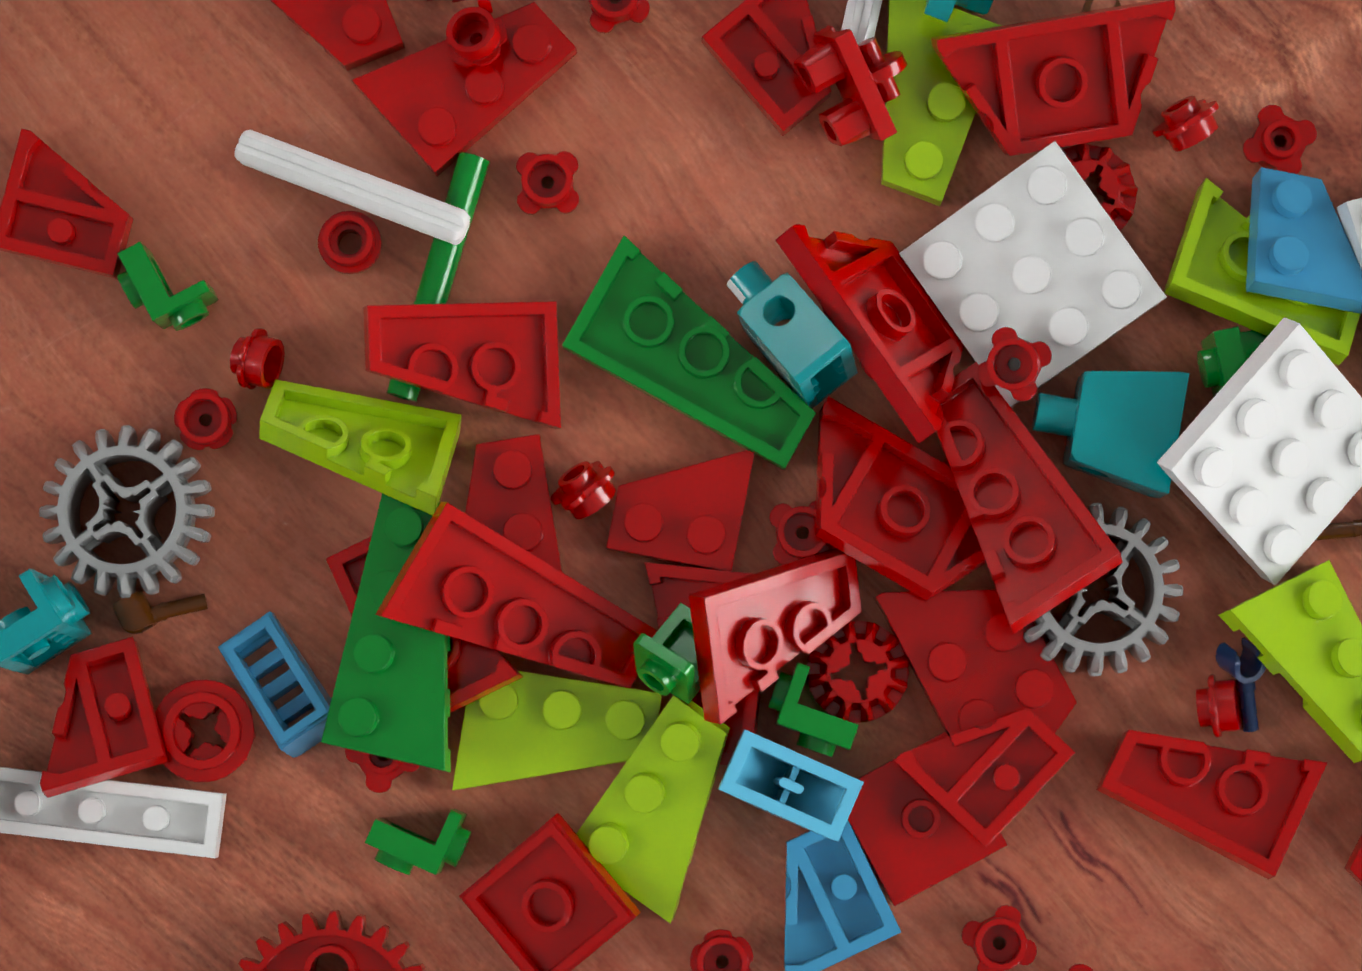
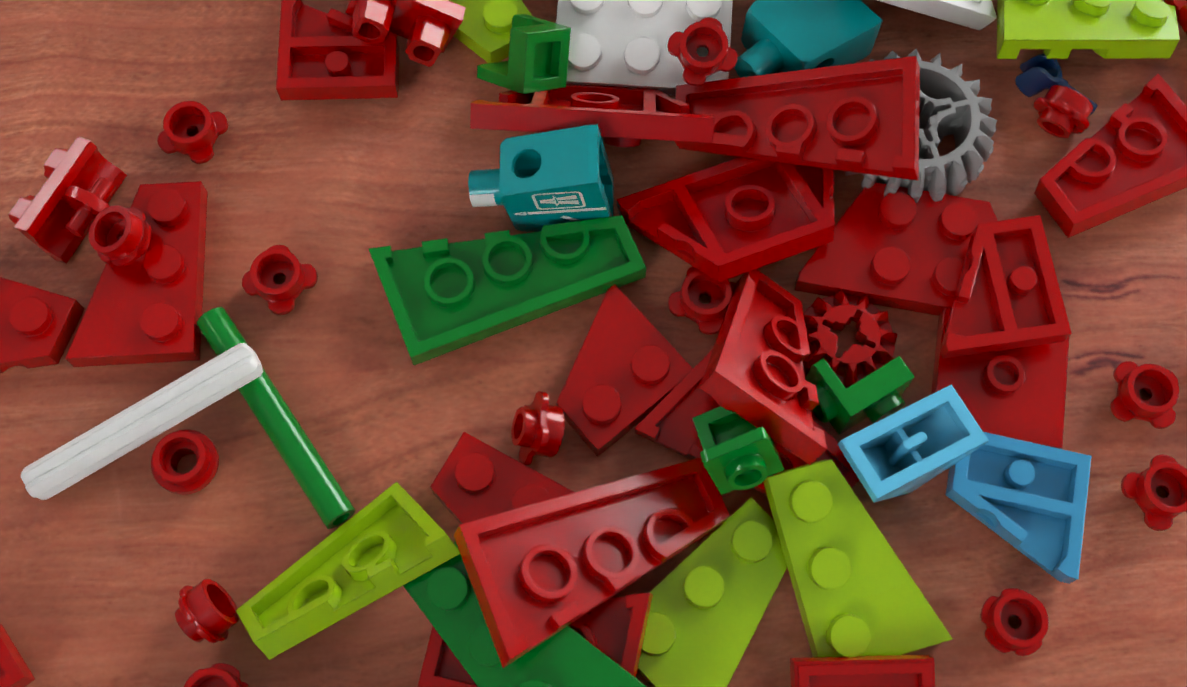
camera: 55 degrees left, 15 degrees down
(147, 286) = (59, 654): green bracket -> none
(472, 352) = (352, 430): red wing -> none
(896, 228) = (535, 57): none -> green panel

